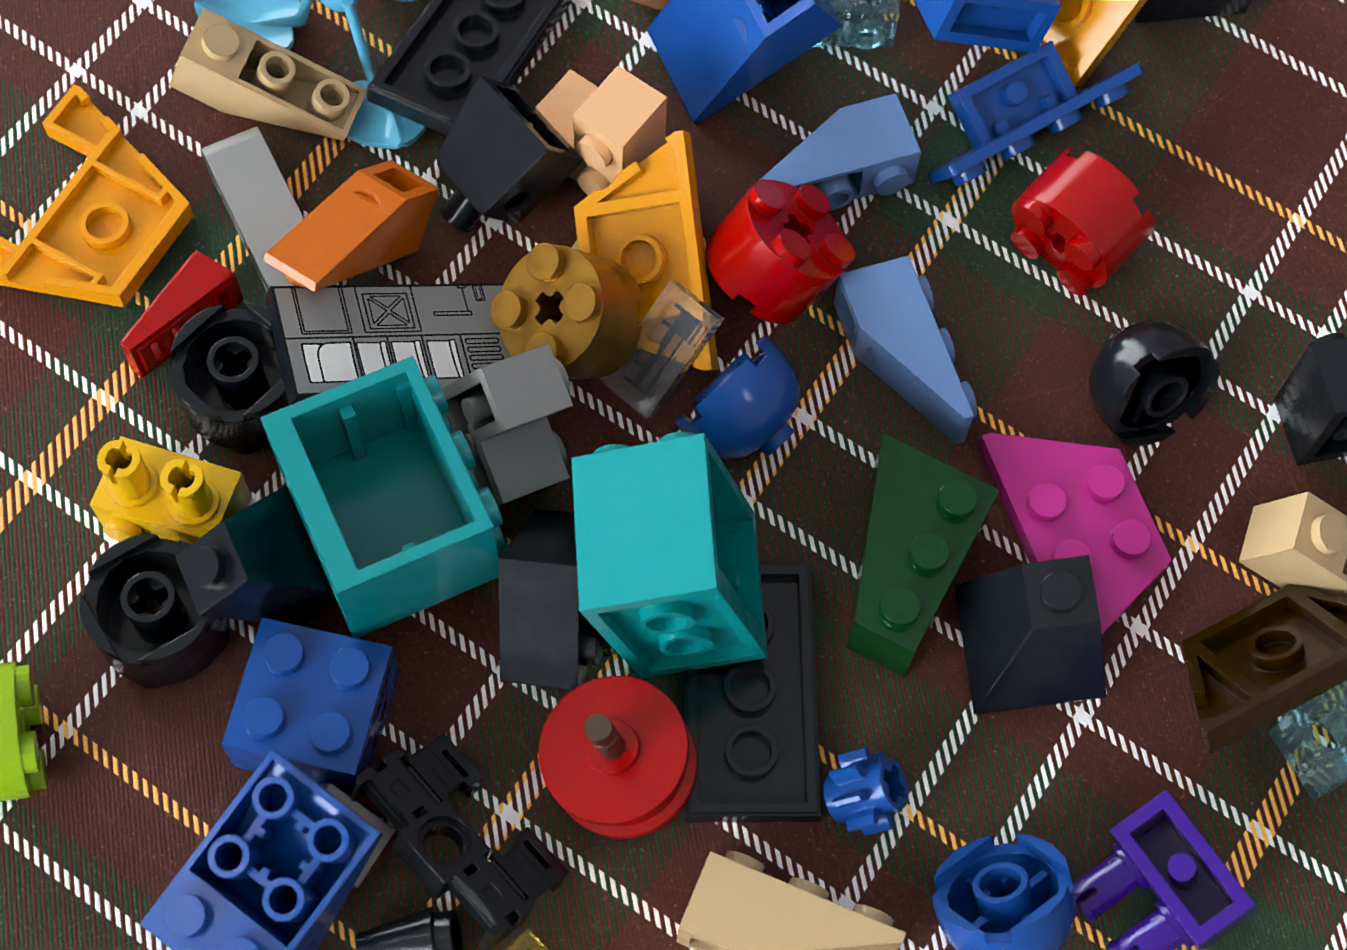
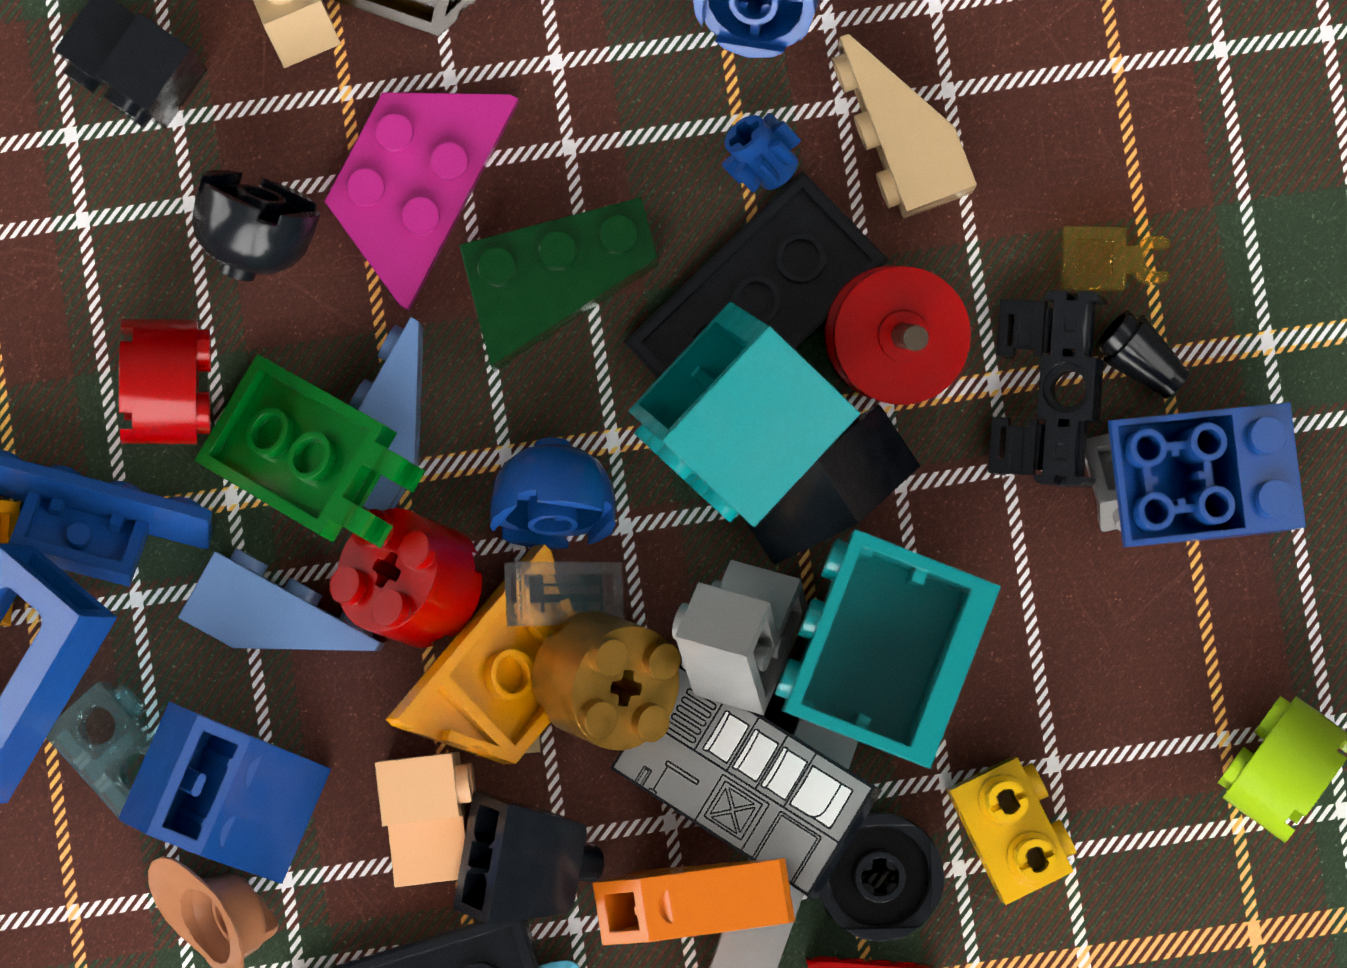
camera: 125 degrees left, 20 degrees up
(117, 606) = (1127, 727): black brick -> none
(257, 566) = (1009, 711): black slope -> none
(313, 702) = (1058, 575): blue brick -> none
(933, 261) = (305, 453): none -> green tile
(1032, 636) = (541, 138): black slope -> none

